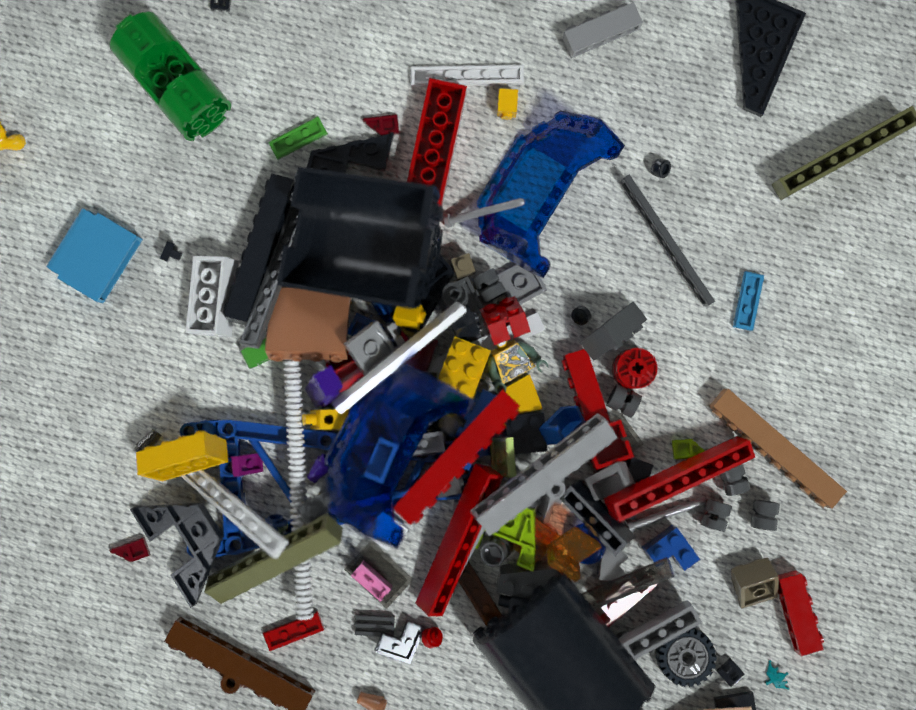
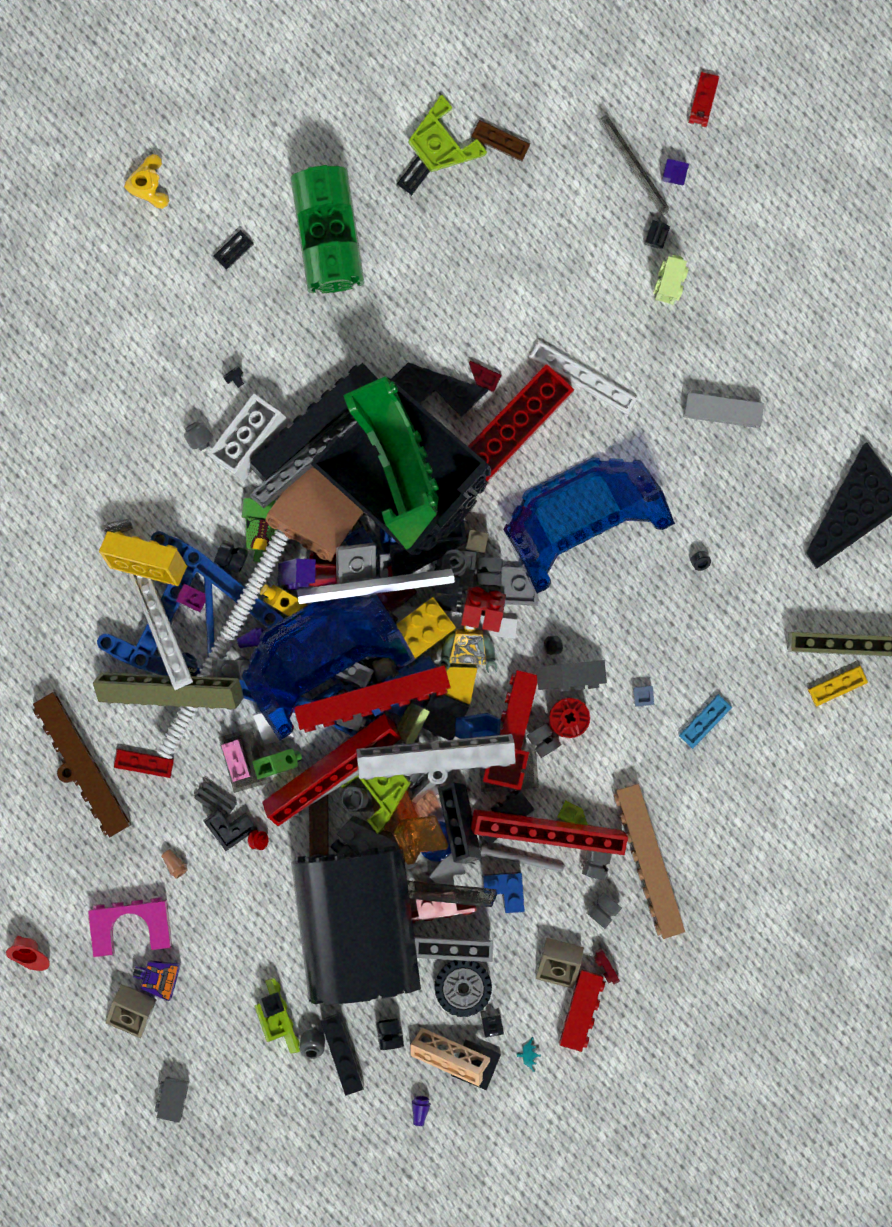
camera: 30 degrees right, 0 degrees up
(93, 255) = (168, 338): dark azure piece -> none
(116, 133) = (238, 255): none -> black tile
(133, 550) = (49, 611): dark red tile -> none
(169, 322) = (197, 436): none -> dark grey head
(198, 533) = (118, 627): black wing -> none
(260, 407) = (231, 556): none -> black wheel
(272, 376) = (257, 536): none -> torso
(298, 138) = (403, 343): bright green tile -> none
(350, 227) = (402, 457): none -> green windscreen
(380, 460) = (308, 662): blue panel -> none
(408, 562) = (276, 763): none -> bright green torso
(409, 317) = (404, 559): yellow brick -> none
(449, 220) = (491, 494): light grey bar -> none
(507, 103) = (601, 424): yellow brick -> none
(610, 480) = (489, 798): light grey panel -> none
(667, 241) = (666, 626): dark grey tile -> none
(684, 311) = (643, 696): none -> sand blue plate
(718, 508) = (569, 885): dark grey wheel -> none
(789, 558) = (601, 959): none -> dark red plate
(840, 203) = (837, 686): none -> yellow tile

